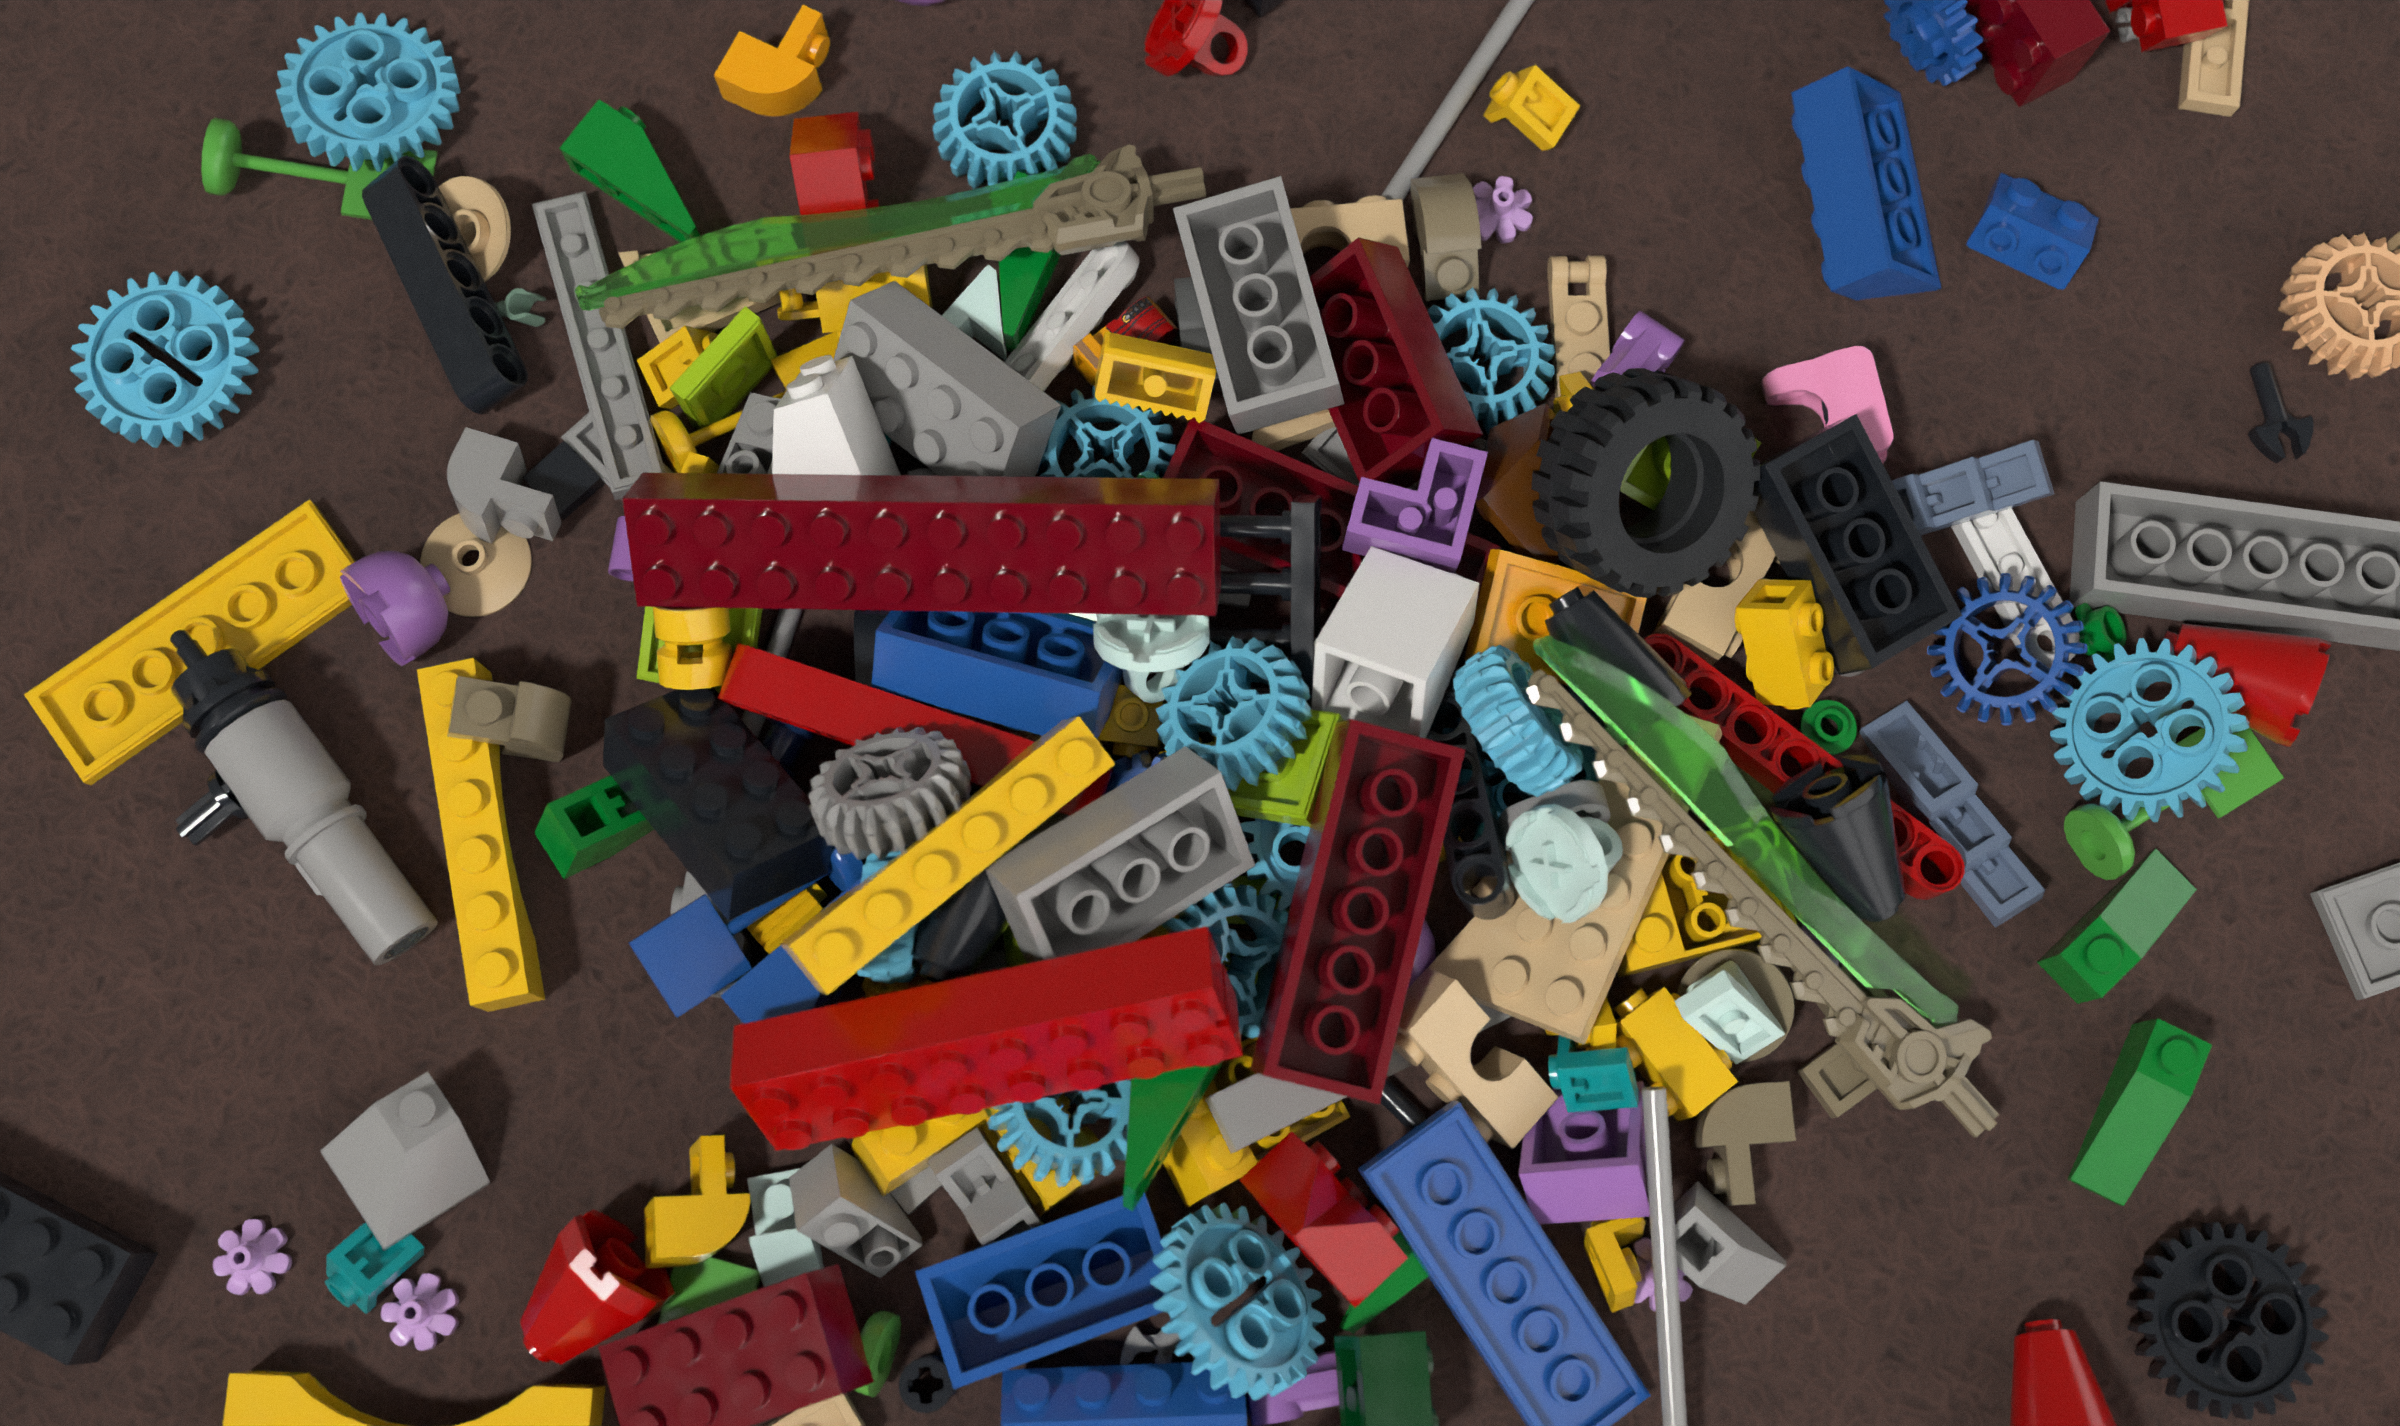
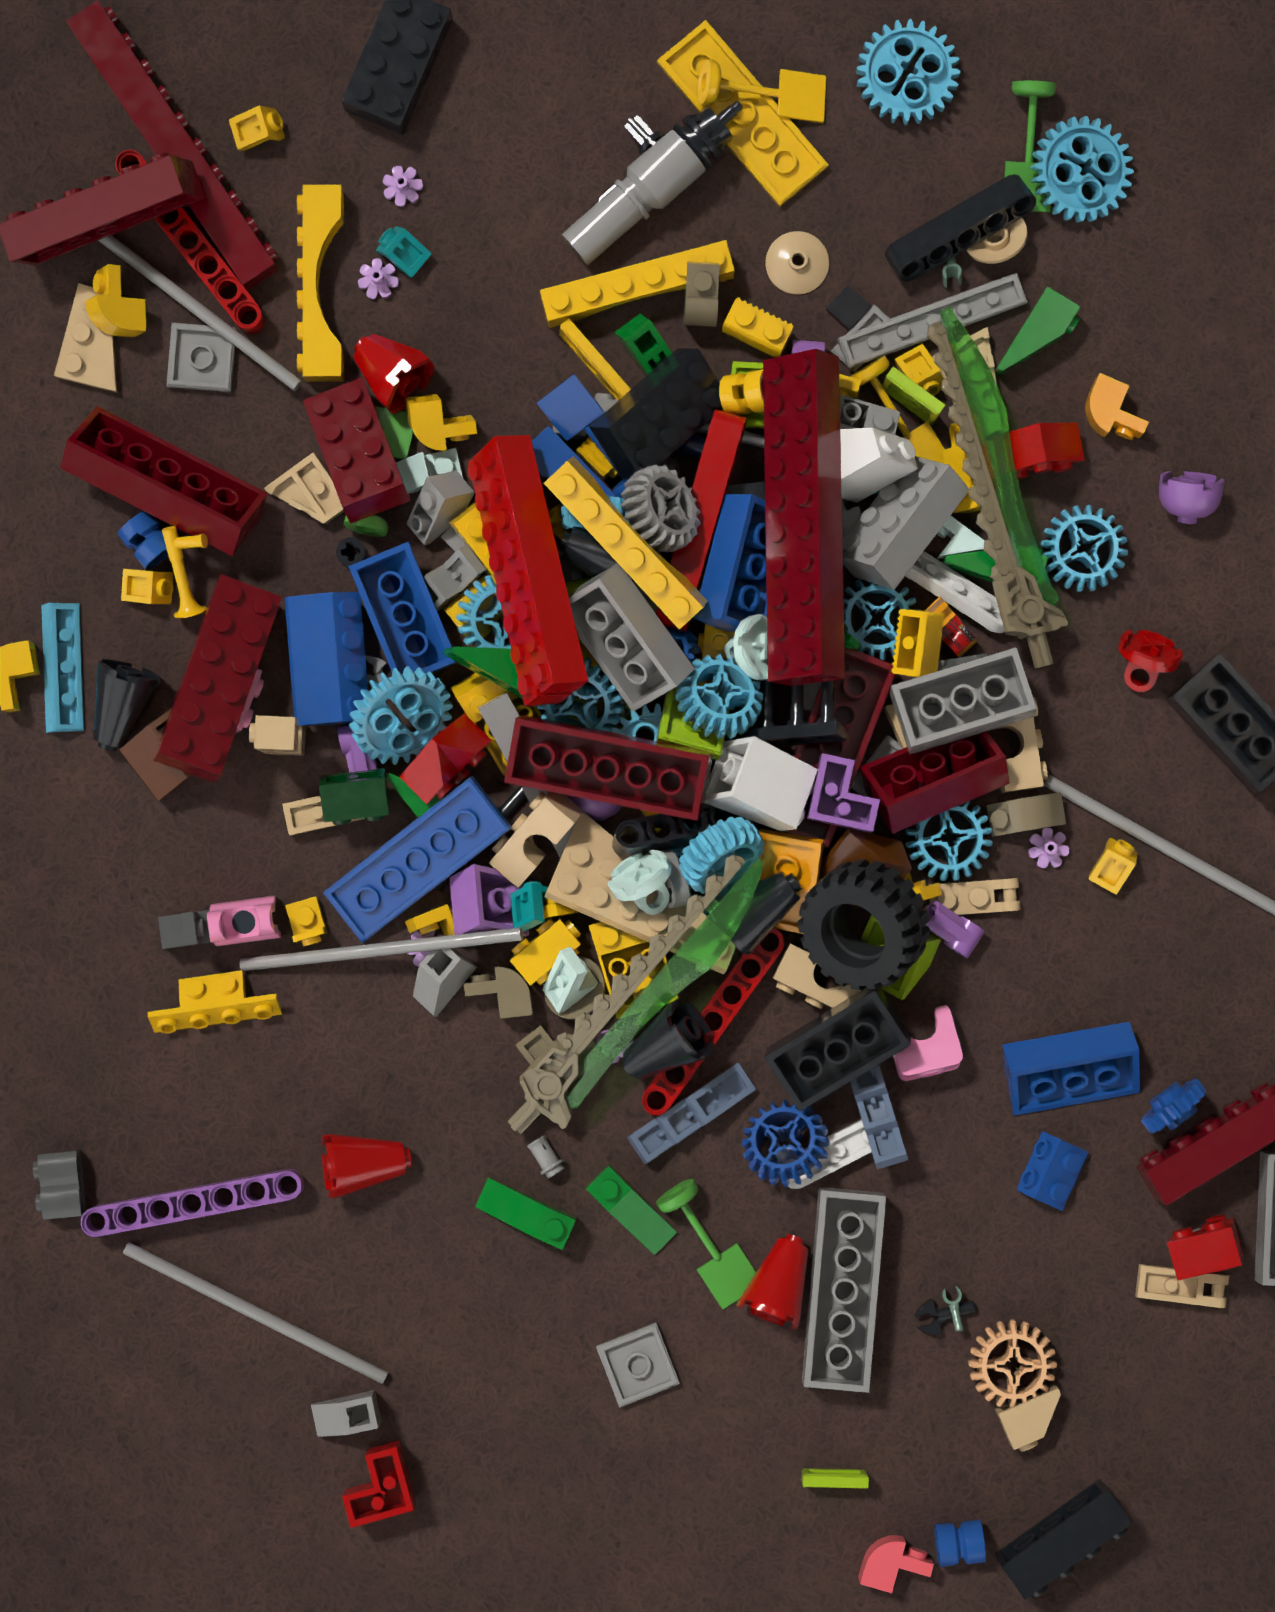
camera: 90 degrees right, 10 degrees up
(175, 542) = (799, 93): none -> yellow piece
(399, 601) = (768, 224): medium lavender cylinder -> none
(406, 1161) = (455, 263): light grey slope -> none
(488, 492) = (837, 264): light grey brick -> none
(581, 629) = (757, 328): none -> yellow brick
(610, 918) = (593, 359): none -> yellow tile
(1784, 642) = (781, 1012): yellow brick -> none
(1811, 726) = (727, 1043): green plate -> none
(2035, 1071) = (546, 1157): none -> light grey pin
(2101, 630) = (802, 1201): green plate -> none
(2177, 770) = (716, 1234): medium azure gear -> none
(2259, 394) = (954, 1308): none -> sand green hand
(2268, 1357) = (397, 1282): black gear -> none

